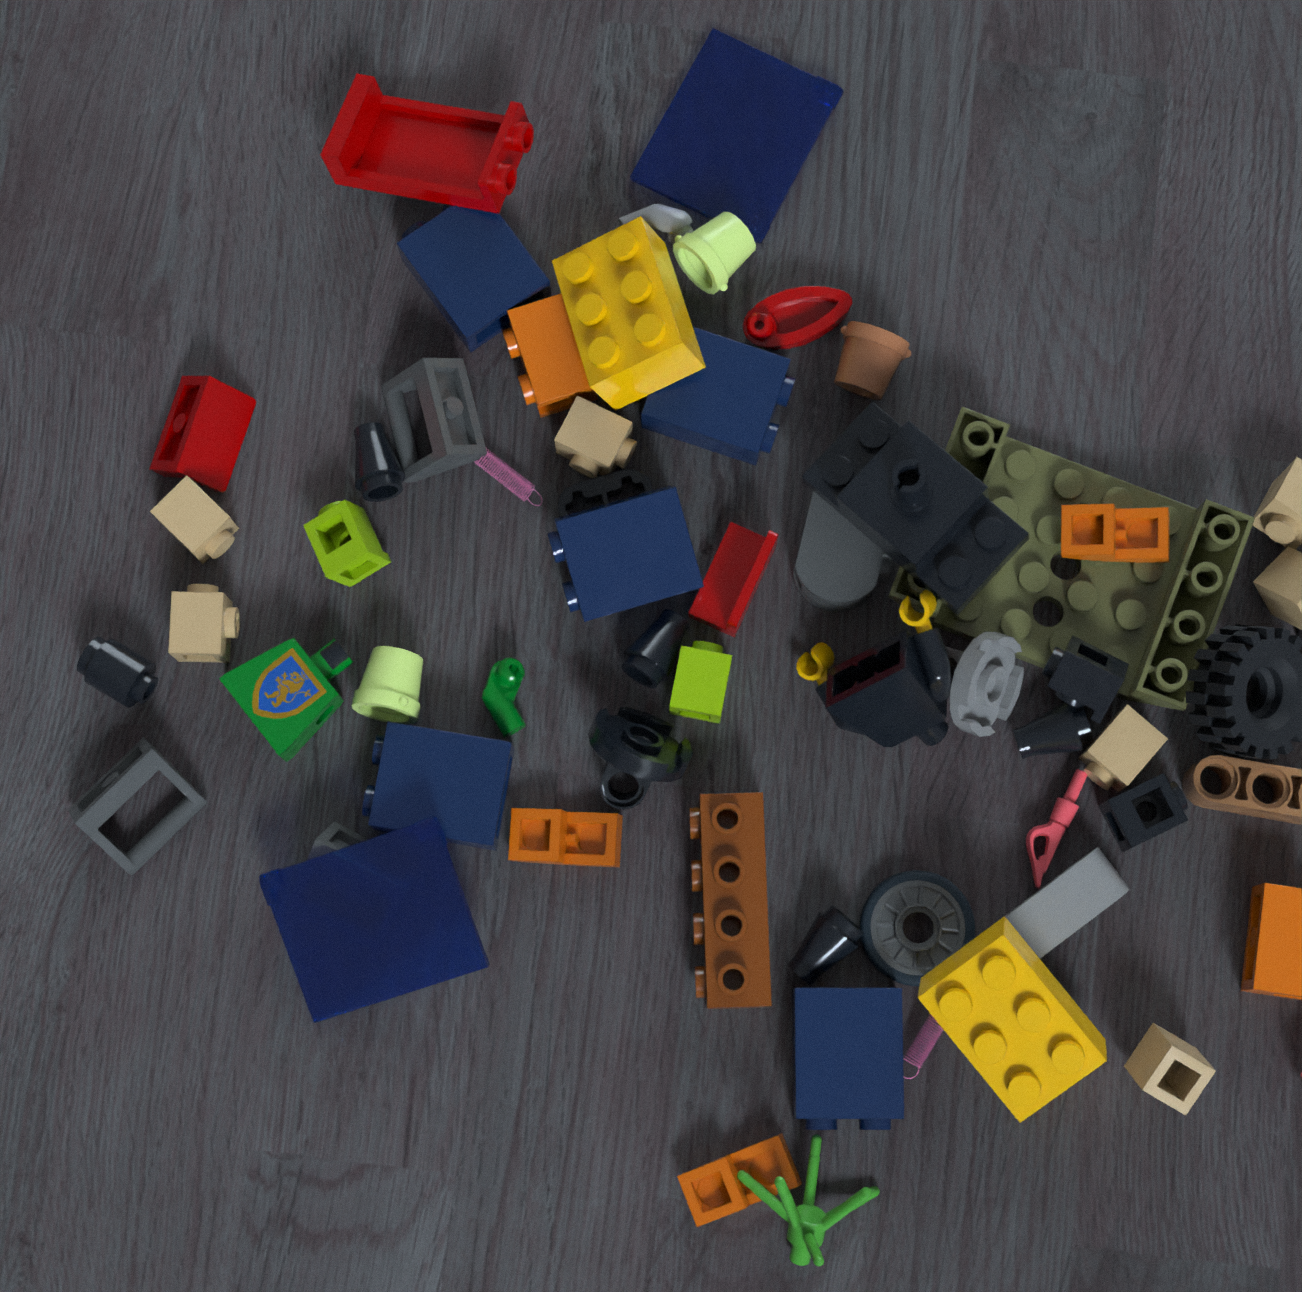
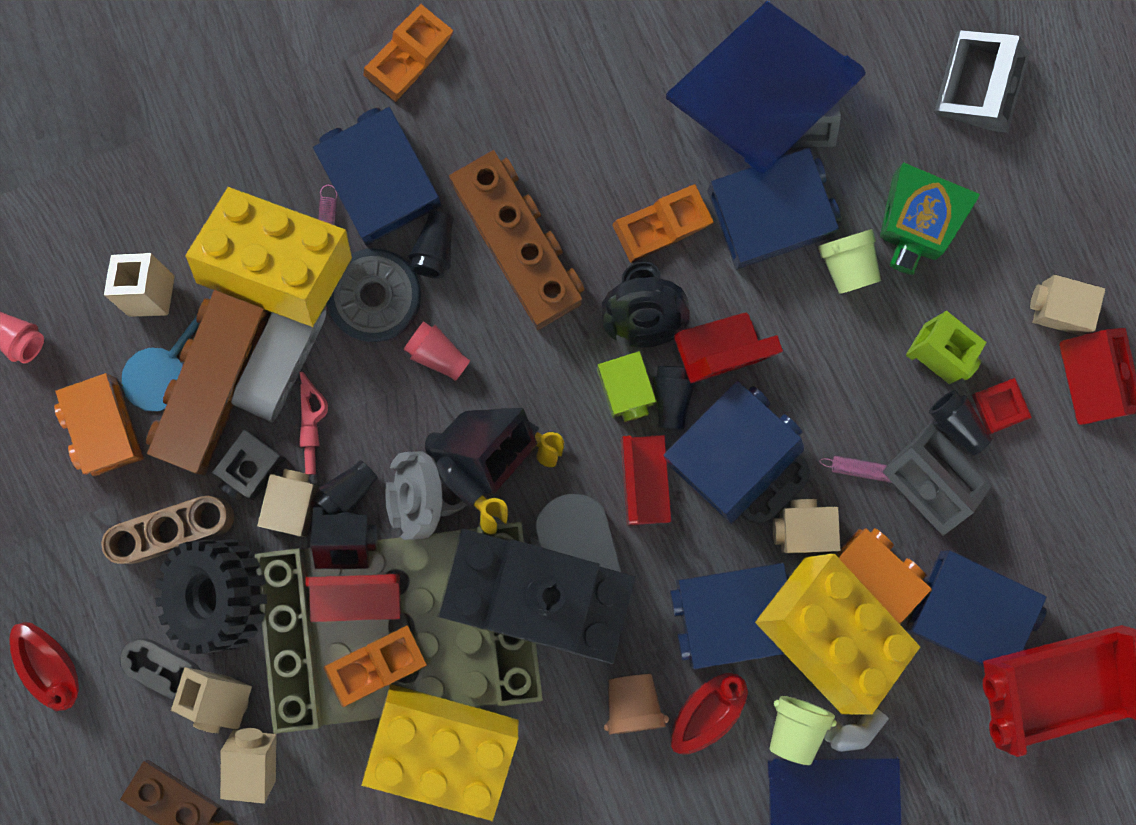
camera: 145 degrees right, 5 degrees up
(118, 671) = (1055, 165): black brick -> none
(202, 624) = (1015, 231): tan brick -> none
(323, 459) = (1001, 406): none -> red tile
(500, 694) = (768, 300): green arm -> none
(577, 665) = (723, 347): none -> red panel
(806, 1221) = (344, 46): bright green plant -> none
(882, 829) = (436, 351): none -> coral cone
(1090, 413) = (441, 752): none -> yellow brick
(1101, 613) = (354, 597): none -> red panel
(1146, 921) = (204, 389): none -> dark orange brick
(1196, 967) = (151, 371): none -> dark azure piece

